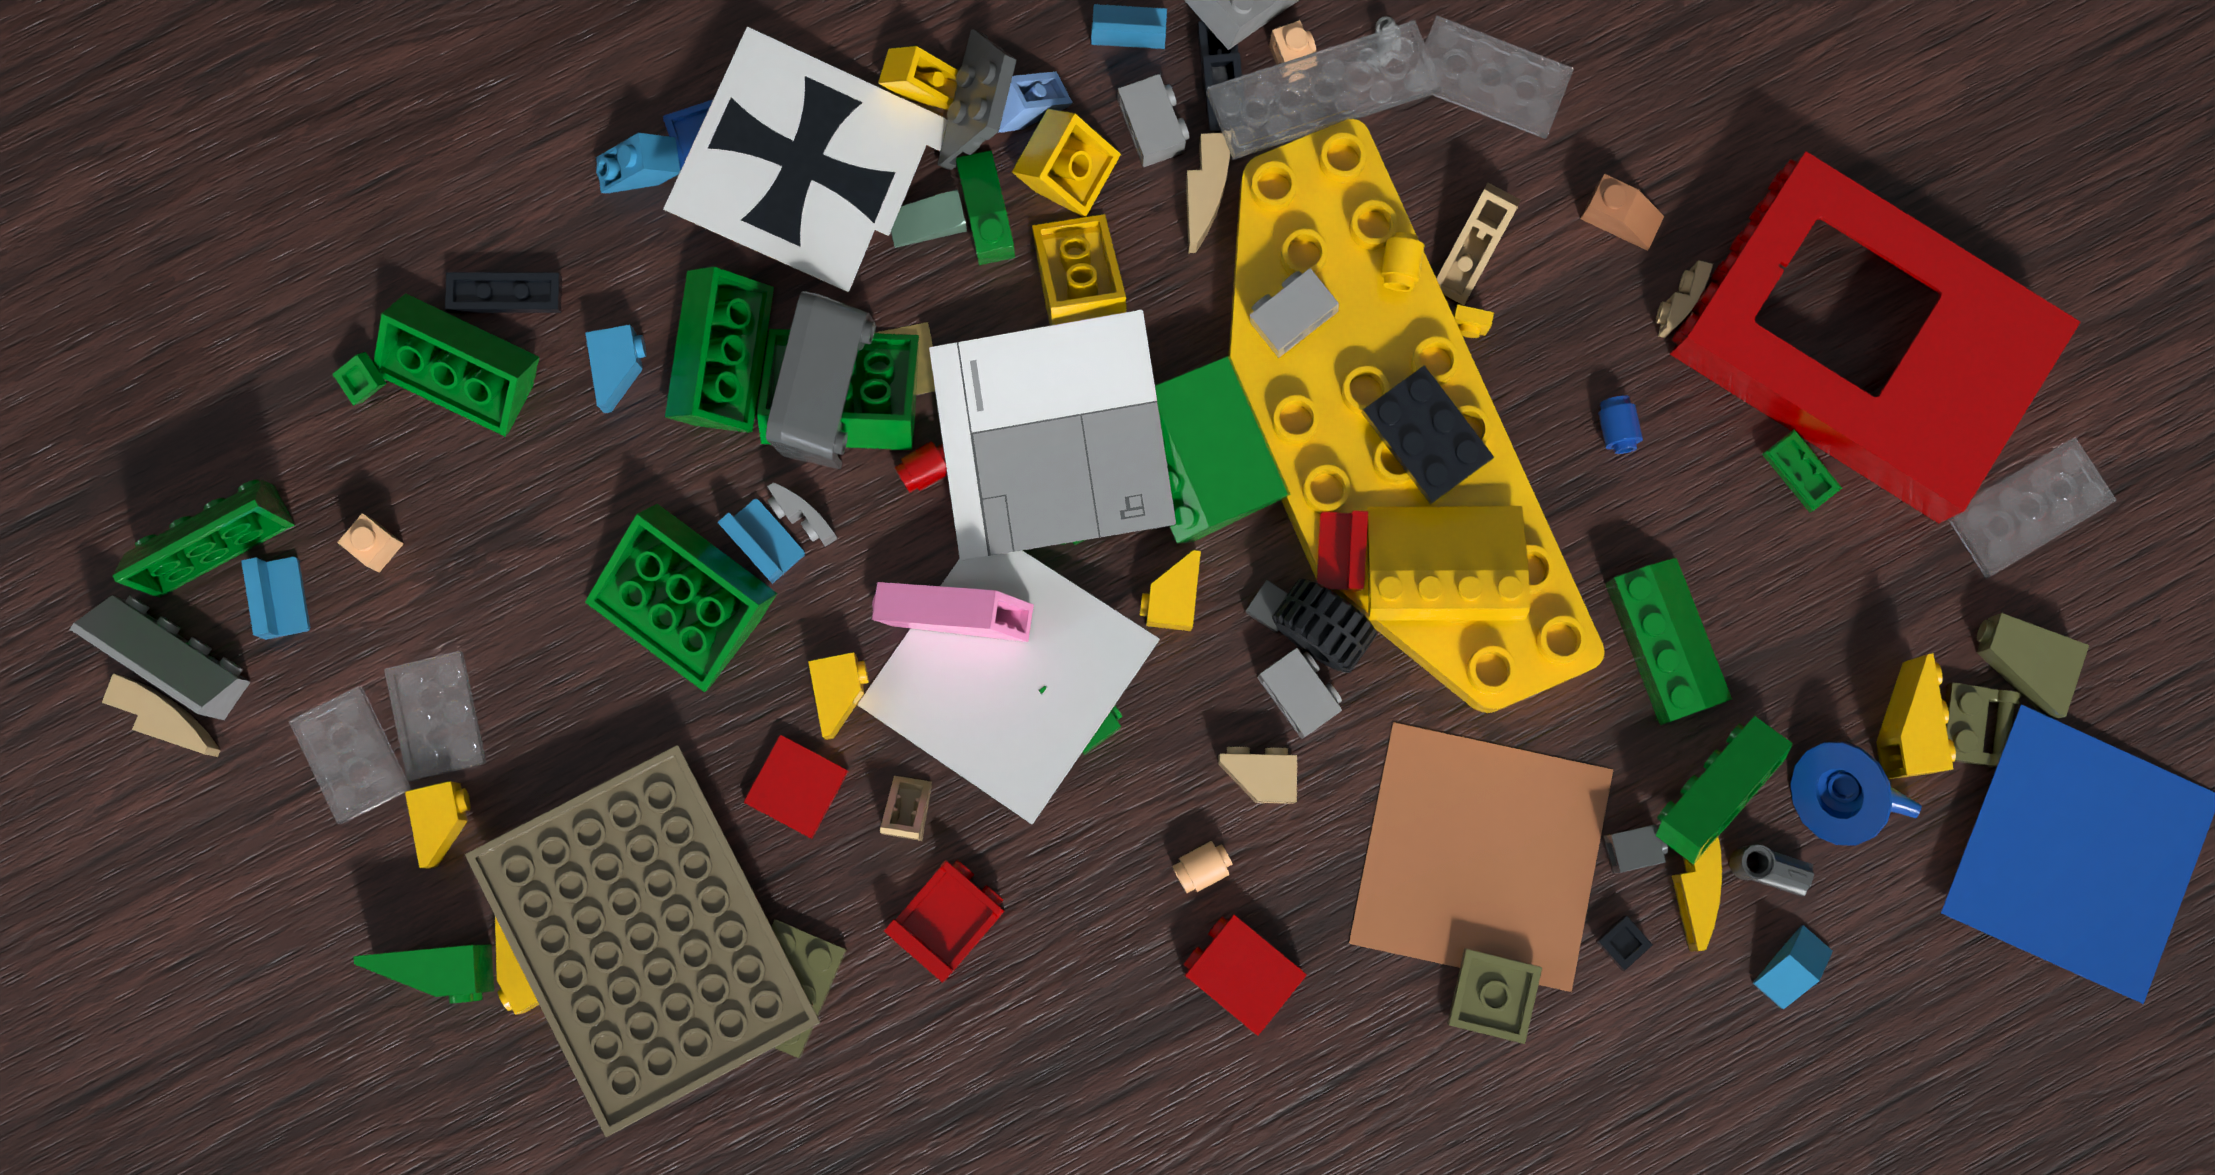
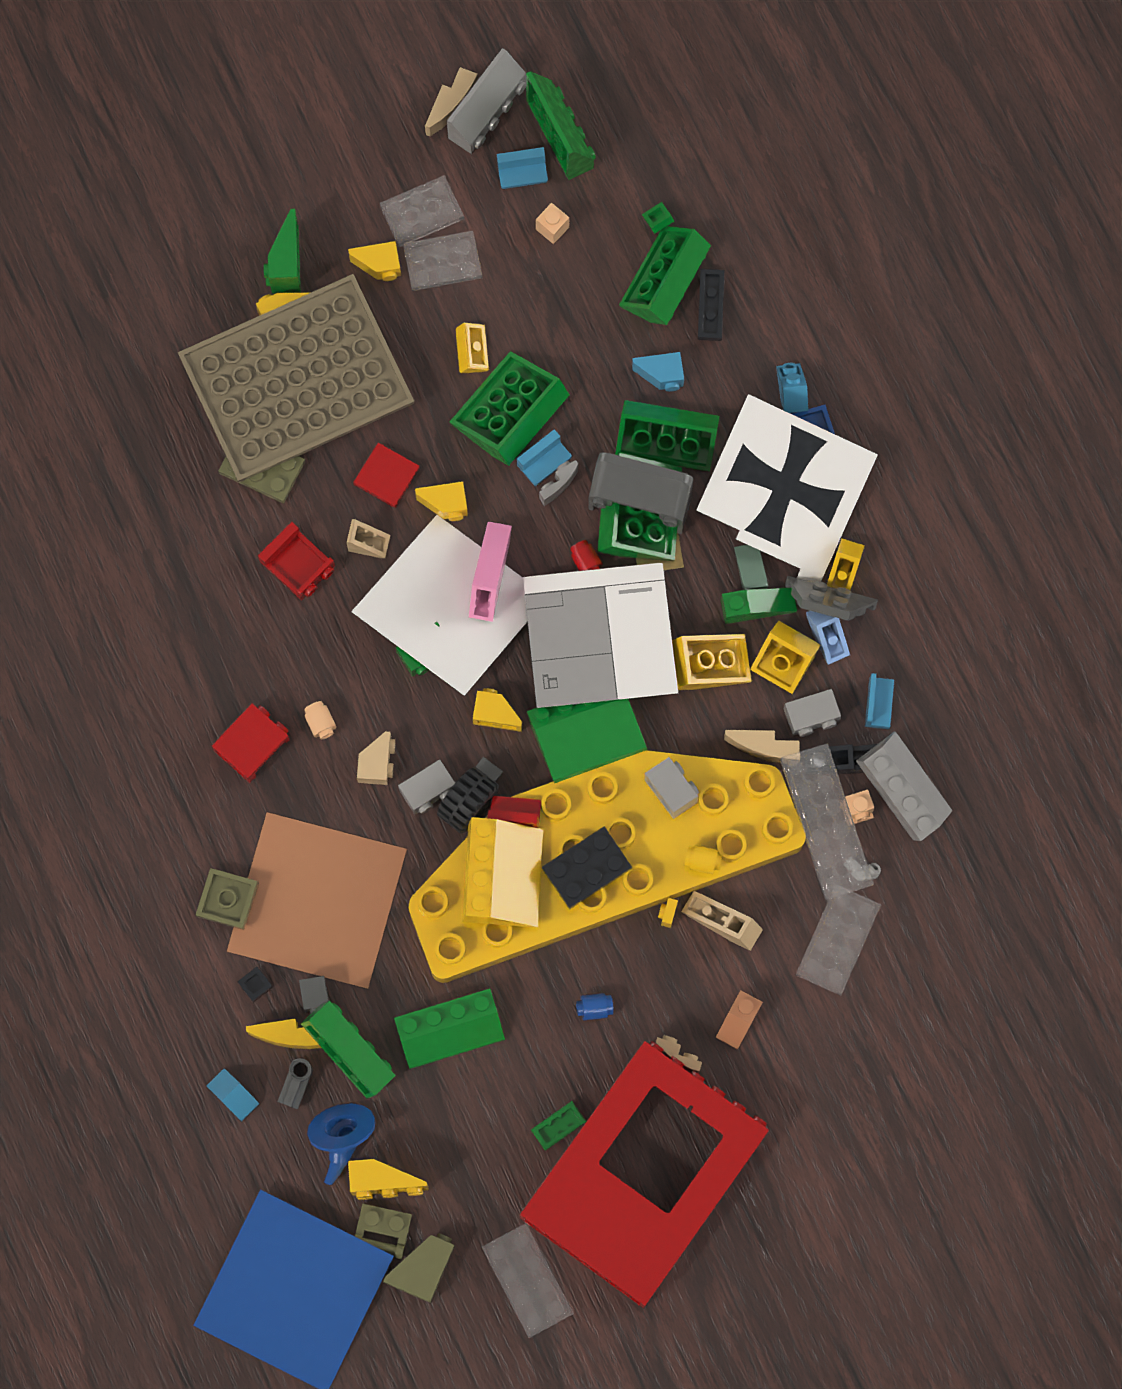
camera: 95 degrees right, 5 degrees down
(581, 663) = (472, 348): none -> yellow slope

